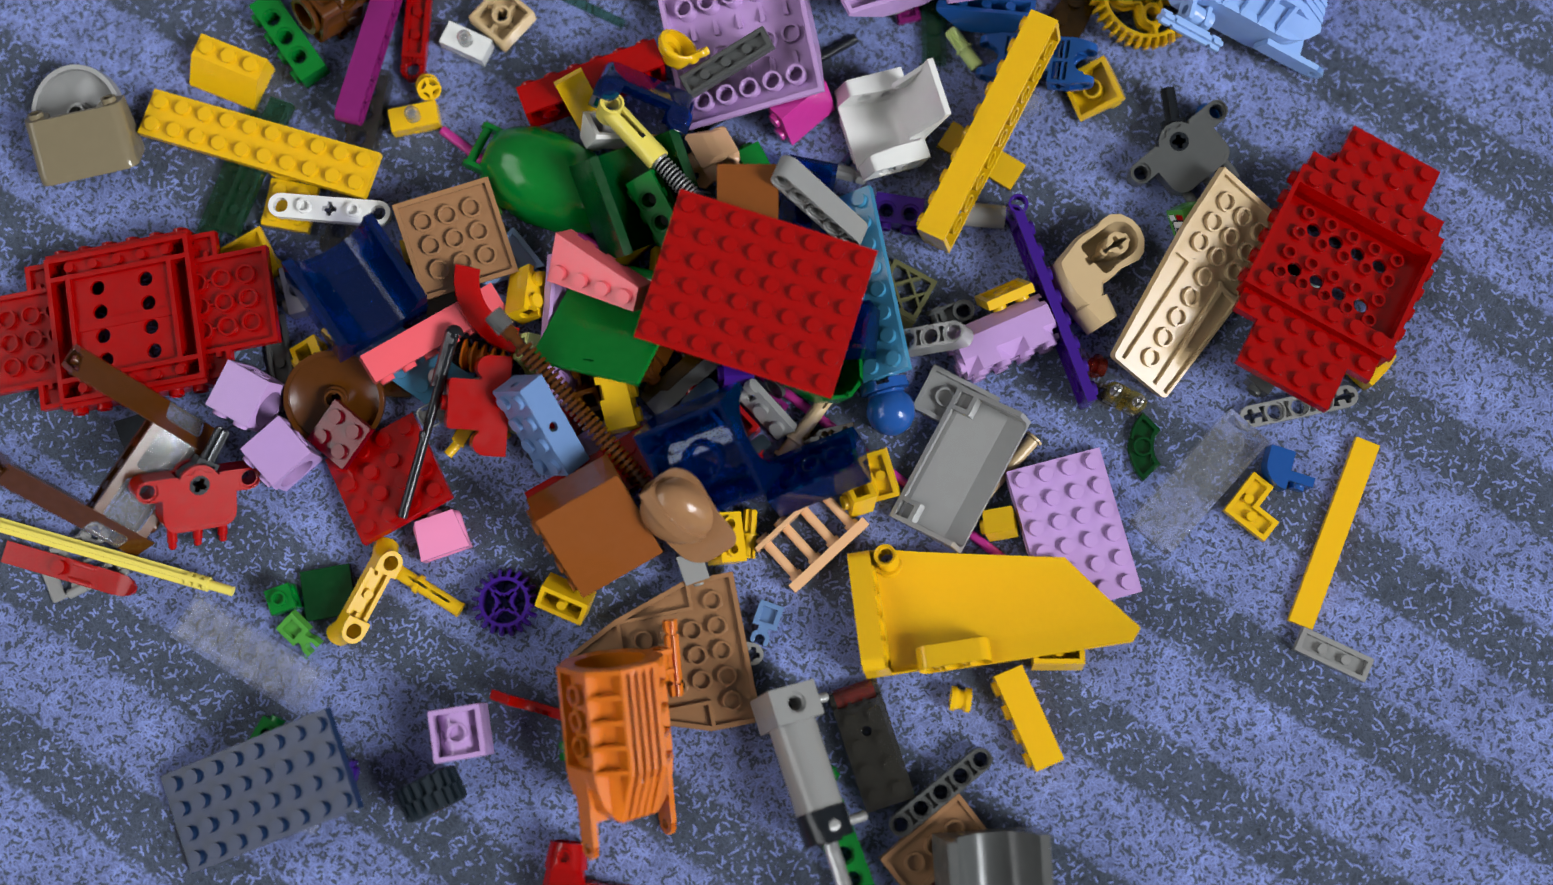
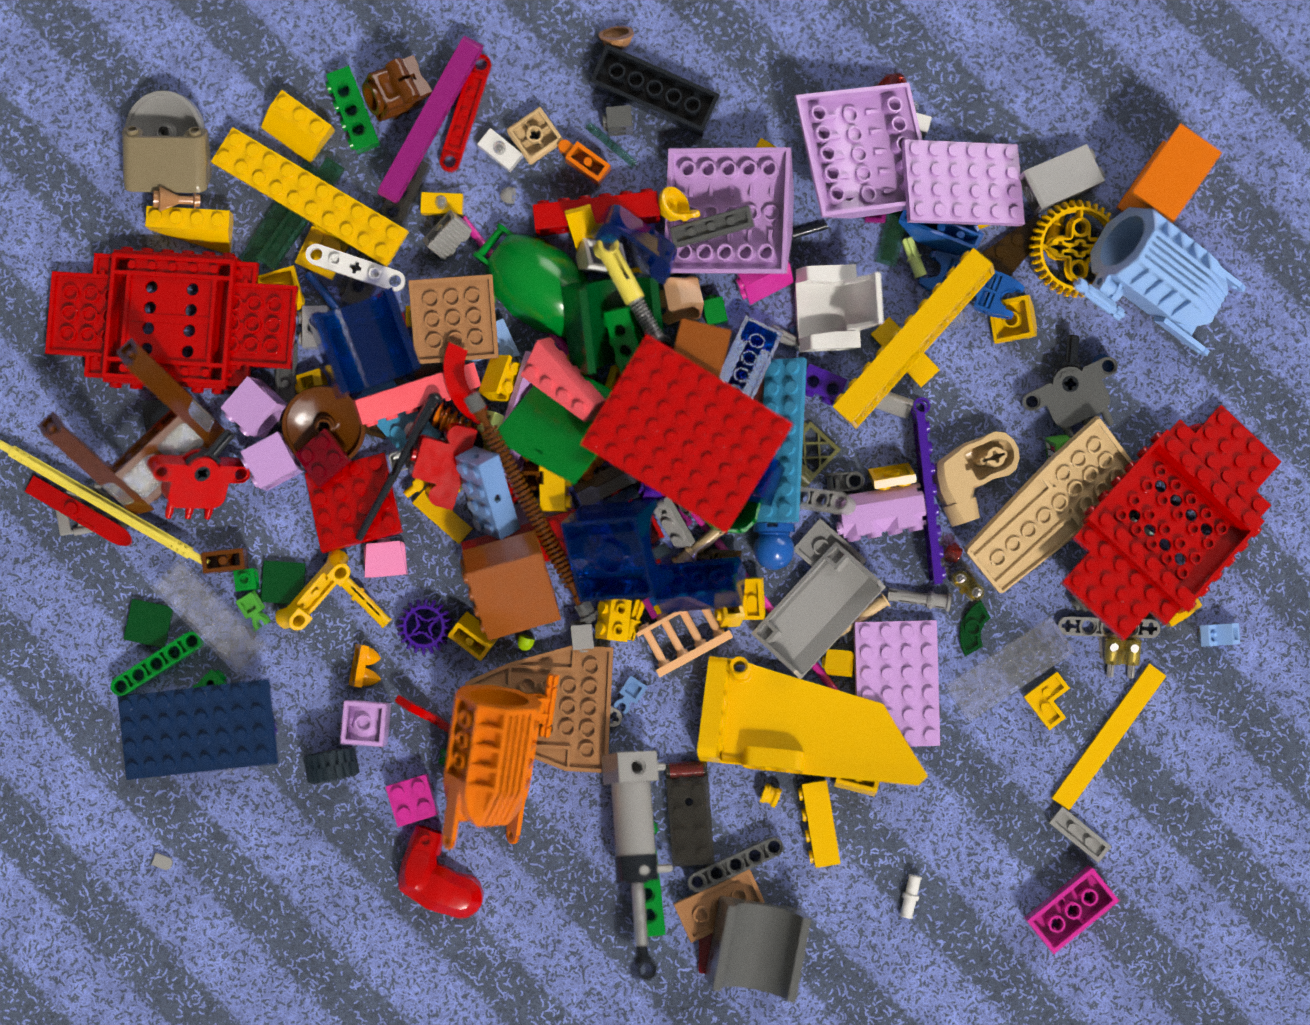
camera: 10 degrees right, 5 degrees up
(91, 184) = (165, 199): none -> medium nougat piece
(133, 209) = (197, 226): none -> yellow wedge
(179, 680) = (148, 623): none -> dark green tile
(187, 728) = (148, 668): none -> green beam
(251, 583) = (225, 561): none -> reddish brown brick
(294, 244) = (322, 290): none -> blue bar
(428, 149) = (447, 235): none -> light grey brick
(430, 91) = (459, 185): yellow wheel -> none
(443, 678) = (359, 674): none -> light orange tile
(486, 90) = (506, 195): none -> light grey hinge
(499, 471) = (444, 518): none -> yellow tile
(538, 811) = (412, 800): none -> dark pink brick
(565, 31) = (584, 161): none -> orange brick
(628, 593) = (525, 643): none -> lime hinge
(684, 516) = (584, 594): medium nougat piece -> none
(766, 512) = (652, 607): none -> magenta tile
(818, 200) = (757, 368): light grey beam -> none
(1084, 426) = (929, 599): none -> light grey pin
(1156, 778) = (910, 896): none -> white pin
(1277, 471) = (1076, 676): blue brick -> none
(1320, 431) = (1122, 652): none -> clear yellow piece
(1365, 745) = (1084, 910): none -> dark pink brick
(1427, 383) = (1219, 634): none -> light blue brick

